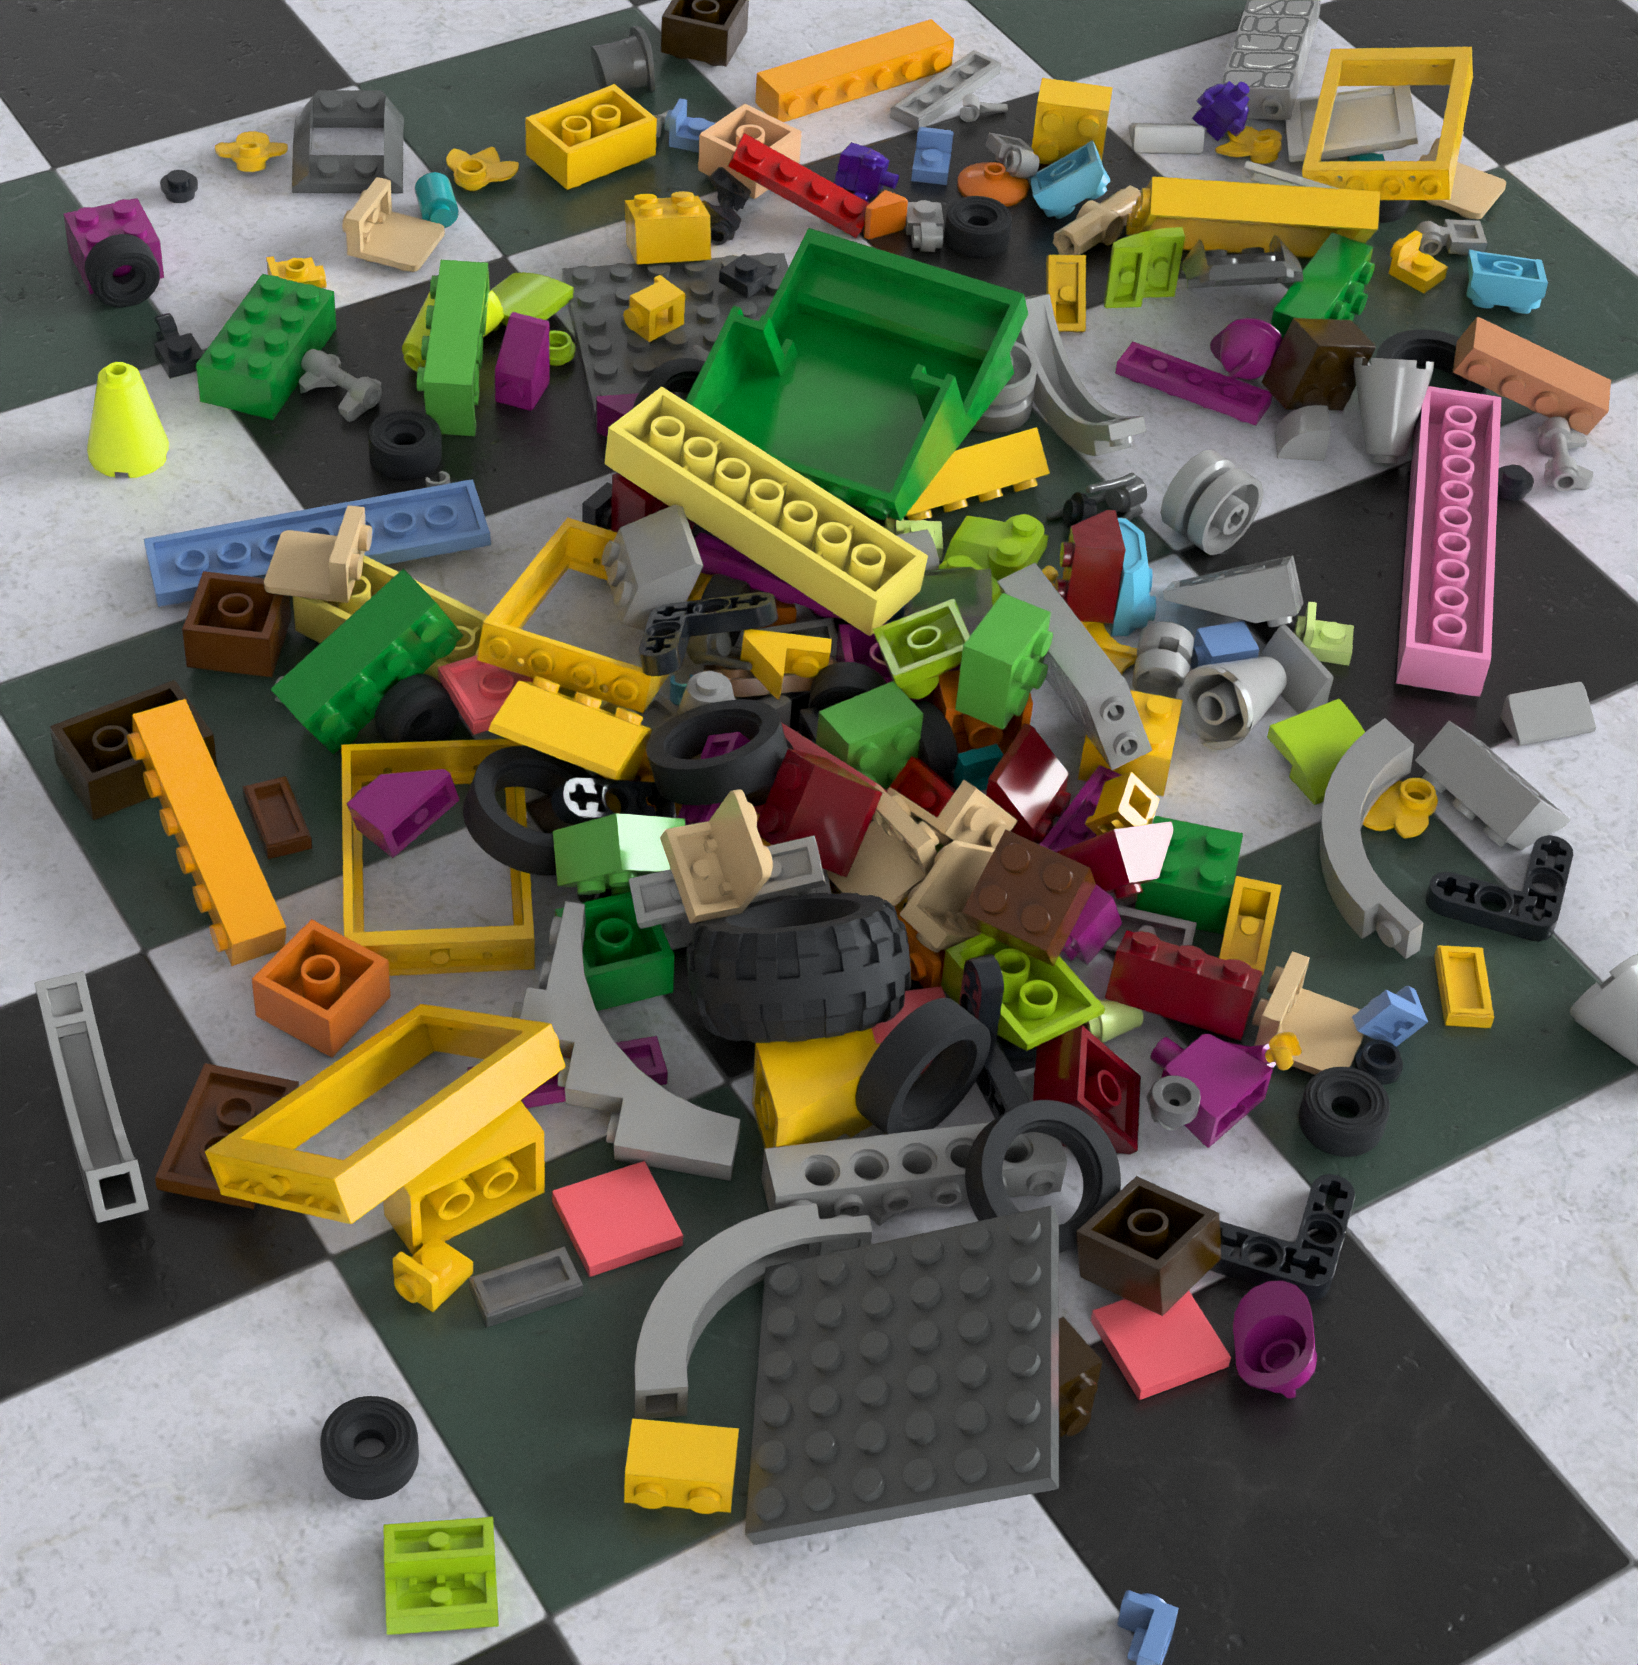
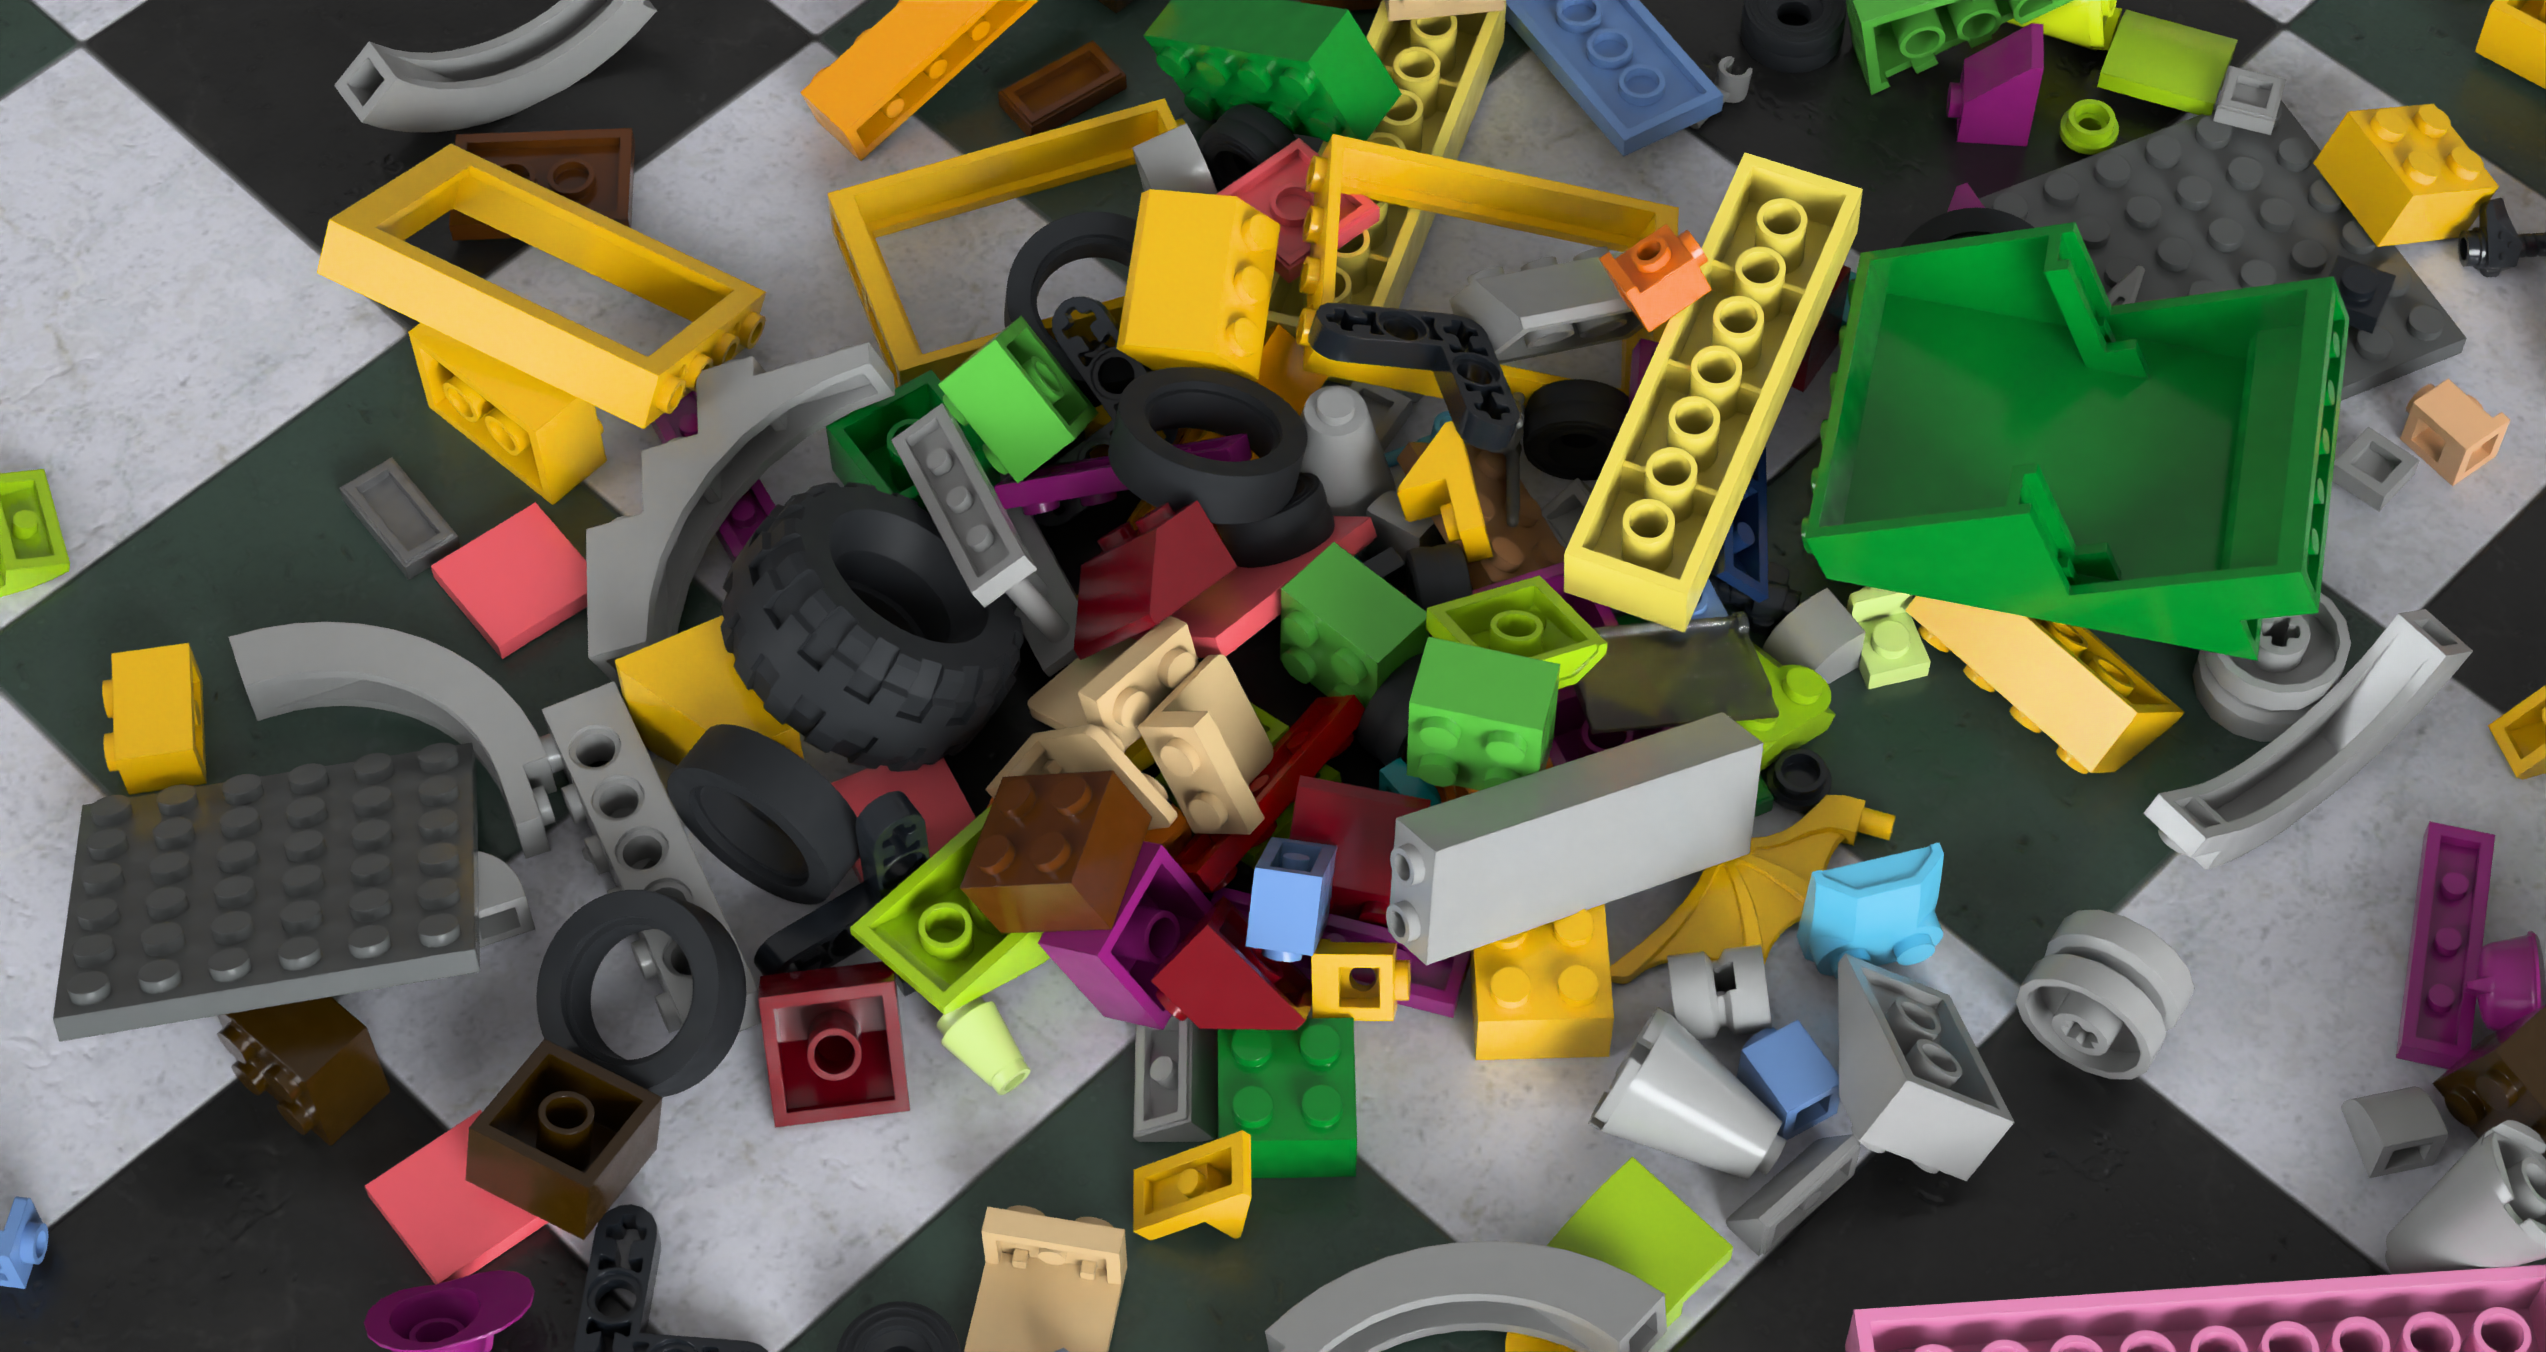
camera: 80 degrees right, 10 degrees up
(321, 988) = (765, 195): orange brick -> none
(369, 1476) = (128, 399): black tyre -> none
(401, 806) = (1050, 172): magenta slope -> none
(431, 1273) = (391, 421): yellow bracket -> none
(438, 741) = (1173, 163): none -> light grey brick
(579, 272) = (2249, 100): none -> light grey tile
(656, 309) = (2193, 200): yellow brick -> none
(695, 488) = (1659, 275): none -> orange brick
(719, 861) = (941, 461): tan bracket -> none
(999, 544) = (1905, 746): lime slope -> none
(1072, 808) = (1290, 898): none -> medium blue brick
(1078, 509) = (2033, 835): black plate -> none
(1092, 567) = (1852, 824): dark red slope -> none
(1121, 494) = (2104, 886): dark grey plant -> none
(1184, 984) = (1057, 1113): dark red slope -> none
(1214, 1082) = (880, 1177): magenta torso -> none
(1326, 640) = (1900, 1221): yellowish green bracket -> none

